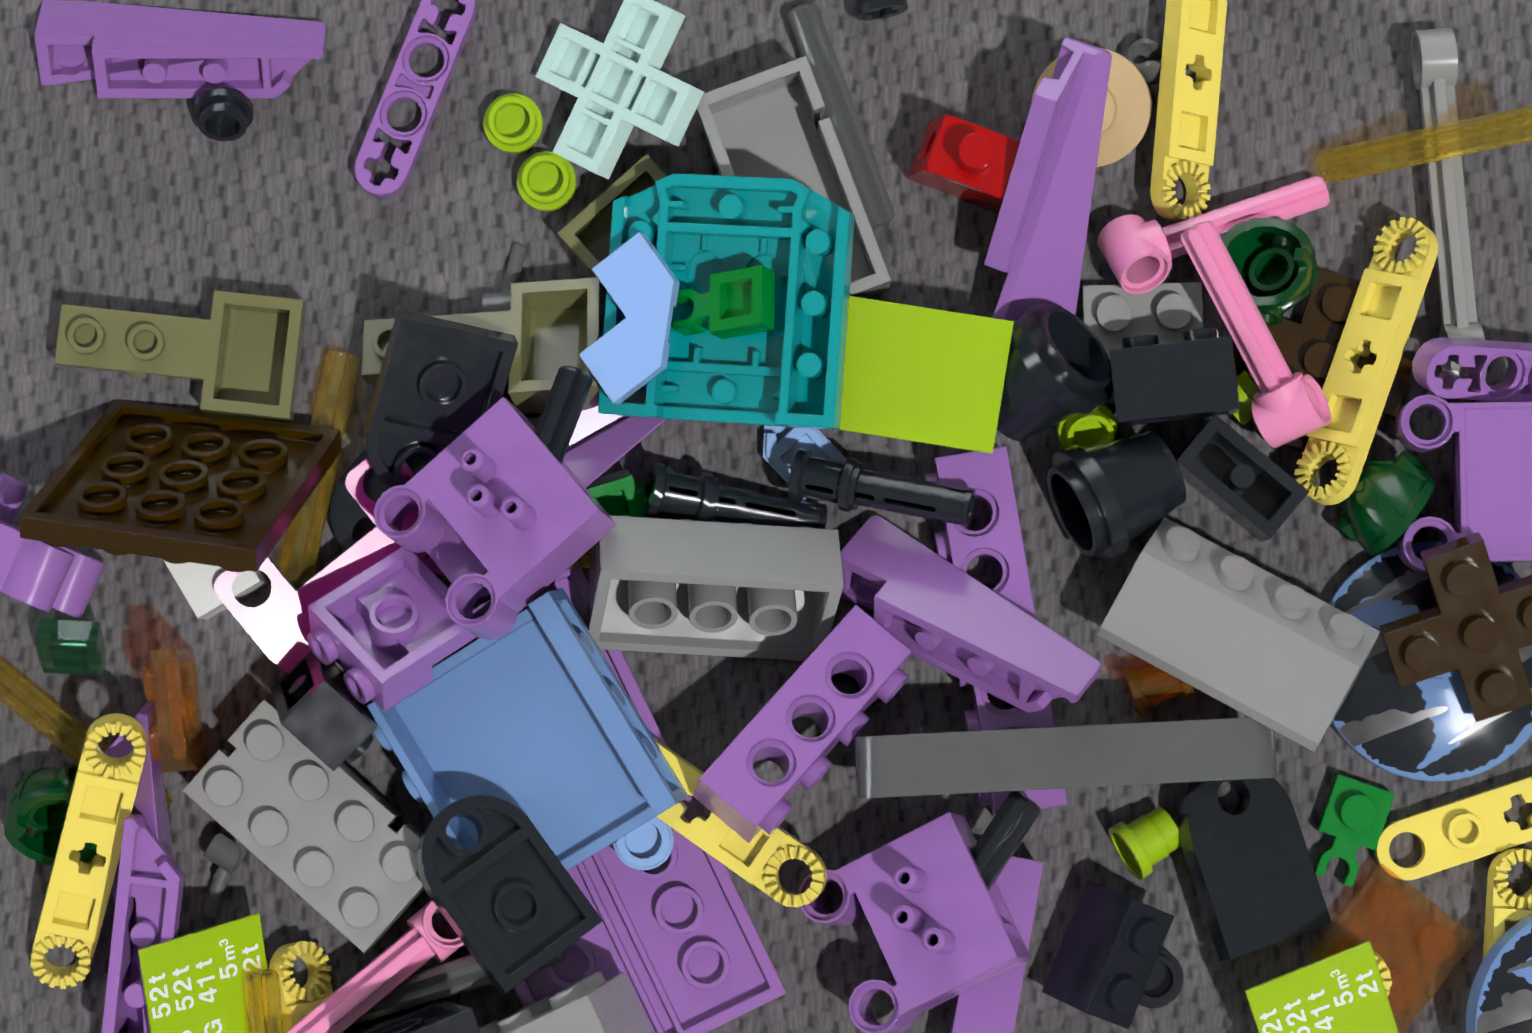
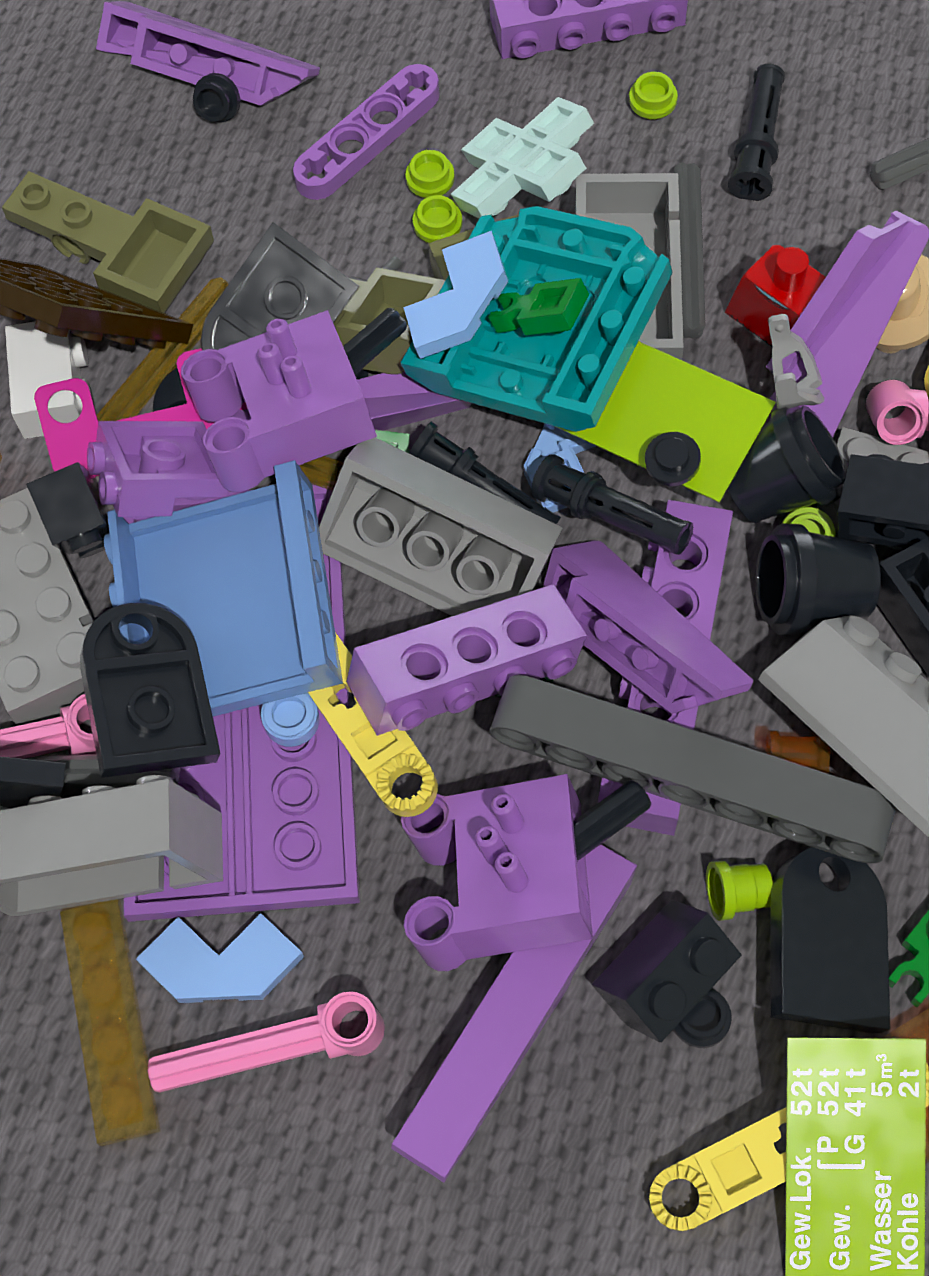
camera: 20 degrees right, 20 degrees down
(930, 429) = (672, 458): none -> black plate
(997, 244) = (784, 343): none -> light grey helmet

